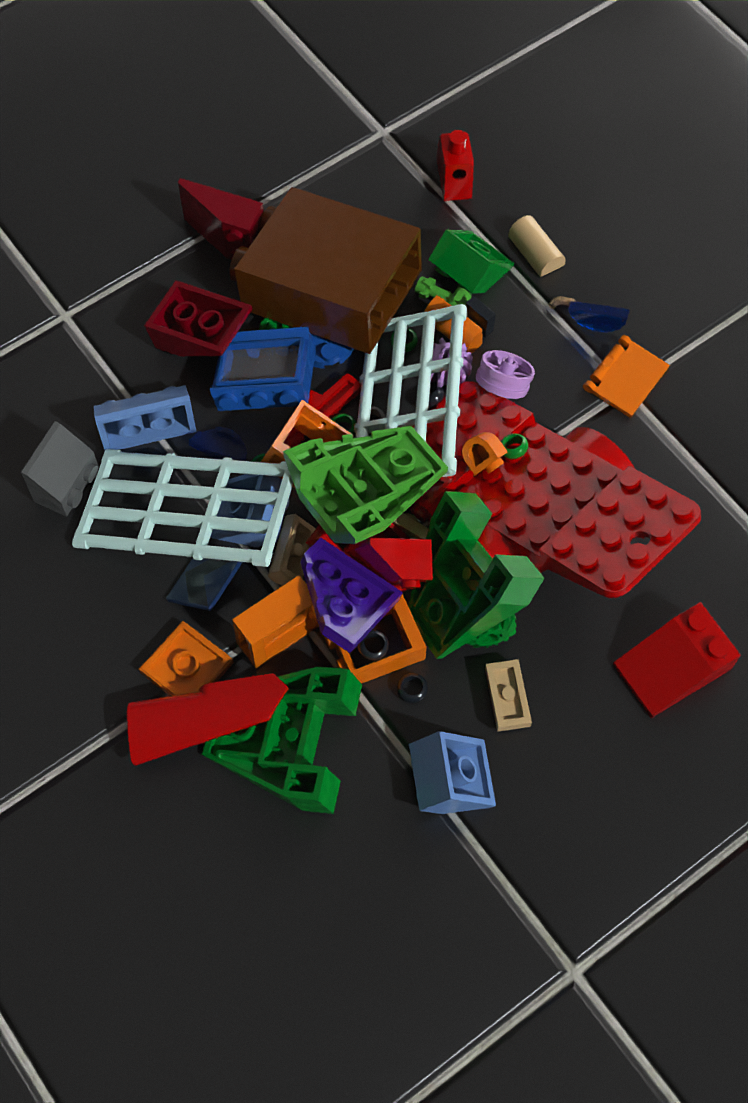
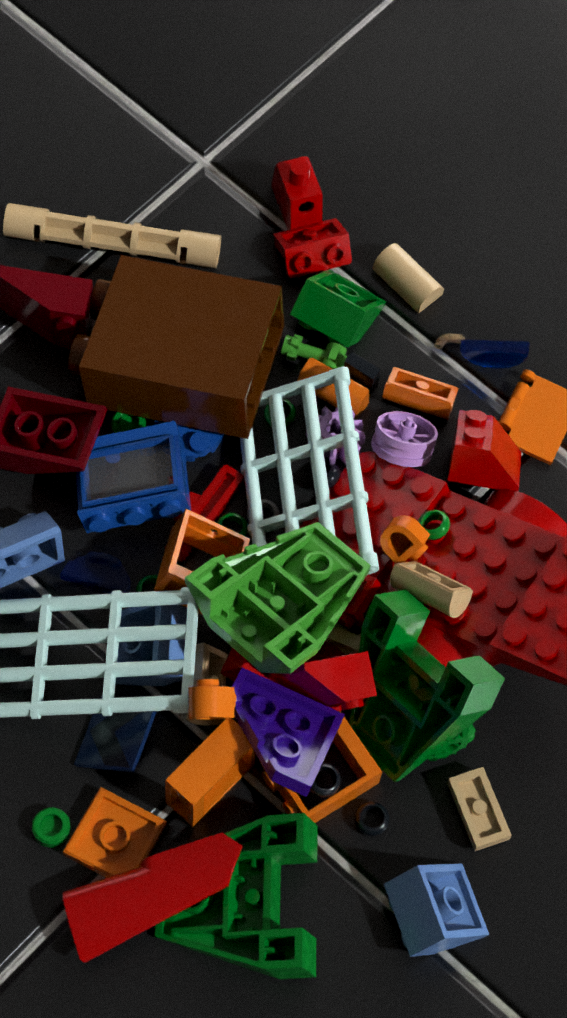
camera: 15 degrees left, 0 degrees up
(134, 647) = (51, 827): none -> green tile
(274, 172) = (41, 225): none -> tan piece
(284, 558) = (210, 700): none -> orange plate
(461, 211) = (314, 248): none -> red bracket
(499, 496) = (431, 587): none -> tan brick
(527, 340) = (420, 393): none -> orange brick
(571, 395) = (483, 453): none -> red slope

